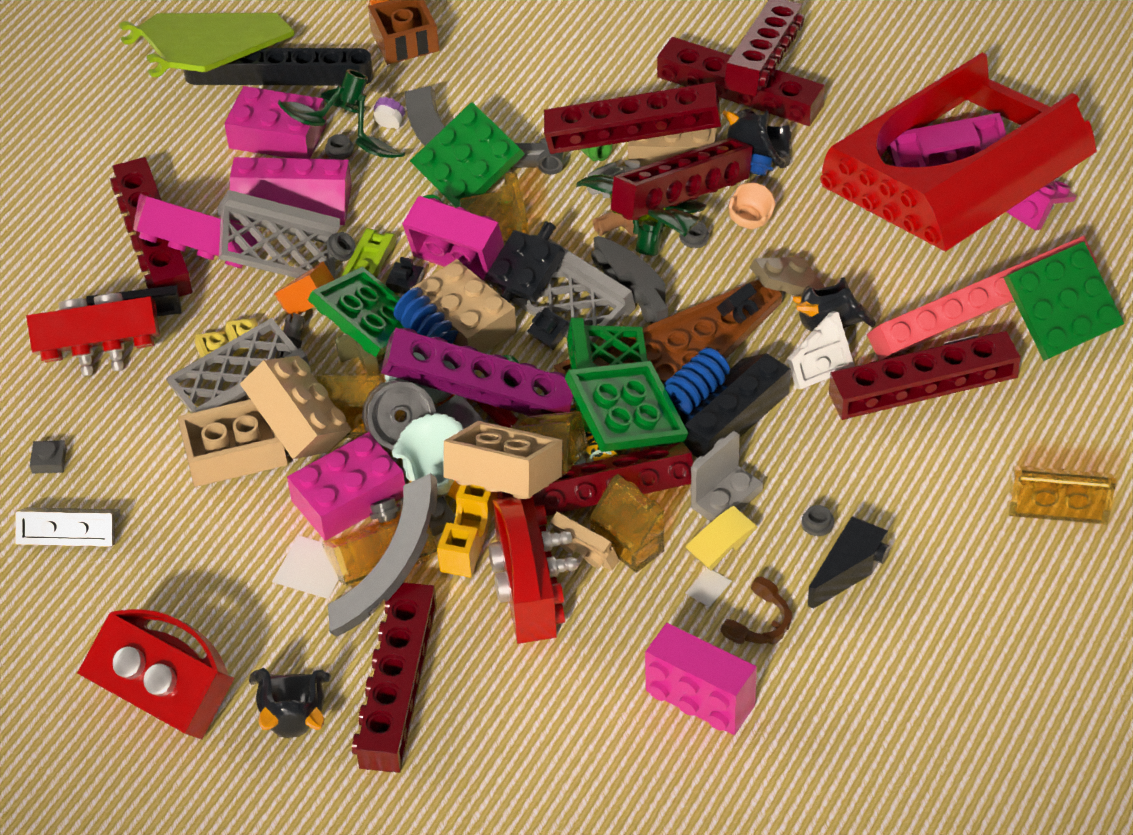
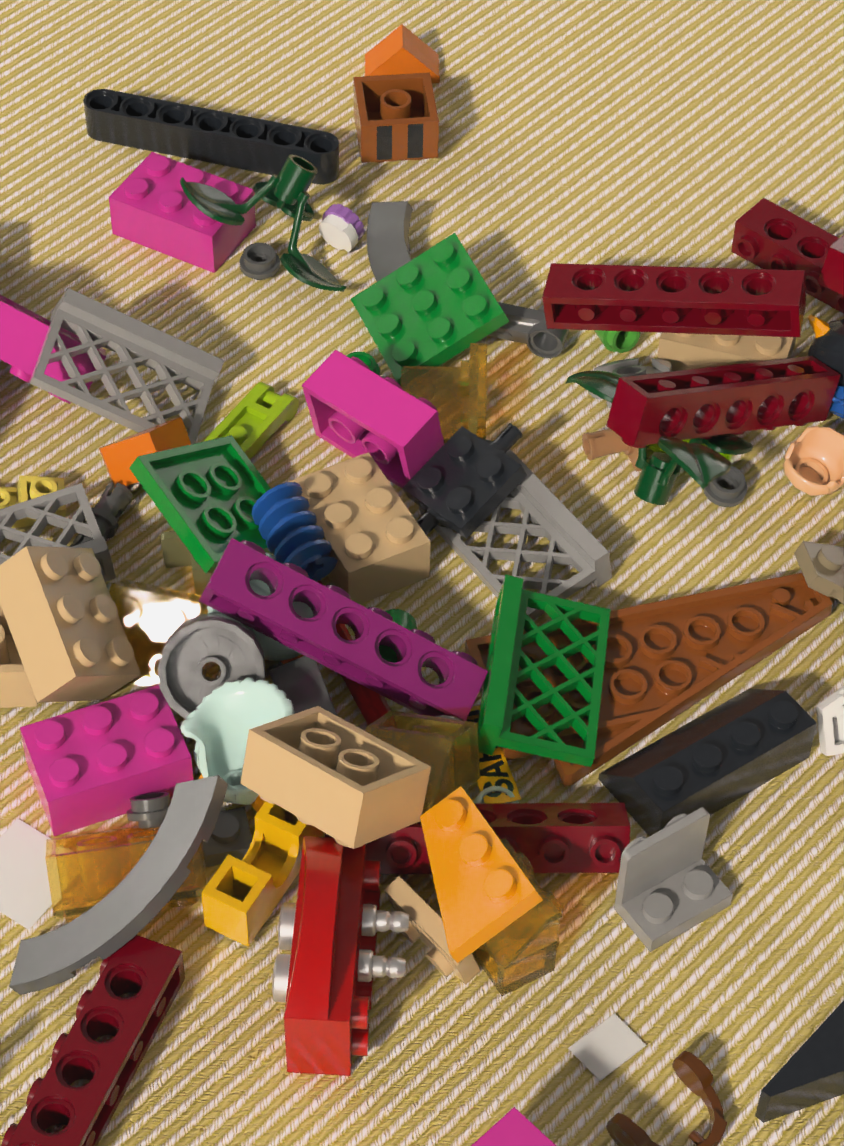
camera: 10 degrees right, 0 degrees up
(205, 39) = (126, 82): lime flag -> none
(301, 183) = (184, 300): dark pink slope -> none
(341, 246) = (220, 394): dark grey plate -> none
(404, 276) = (292, 460): black tile -> none
(548, 328) = (474, 581): black tile -> none
(604, 498) = (473, 875): none -> light orange wing
(626, 406) = (549, 730): green plate -> none
(634, 274) = (620, 529): dark grey slope -> none
(697, 380) = (669, 710): blue piece -> none
(720, 536) = (645, 969): light yellow slope -> none
(737, 302) = (764, 601): black tile -> none
(817, 521) = (803, 977): dark grey plate -> none

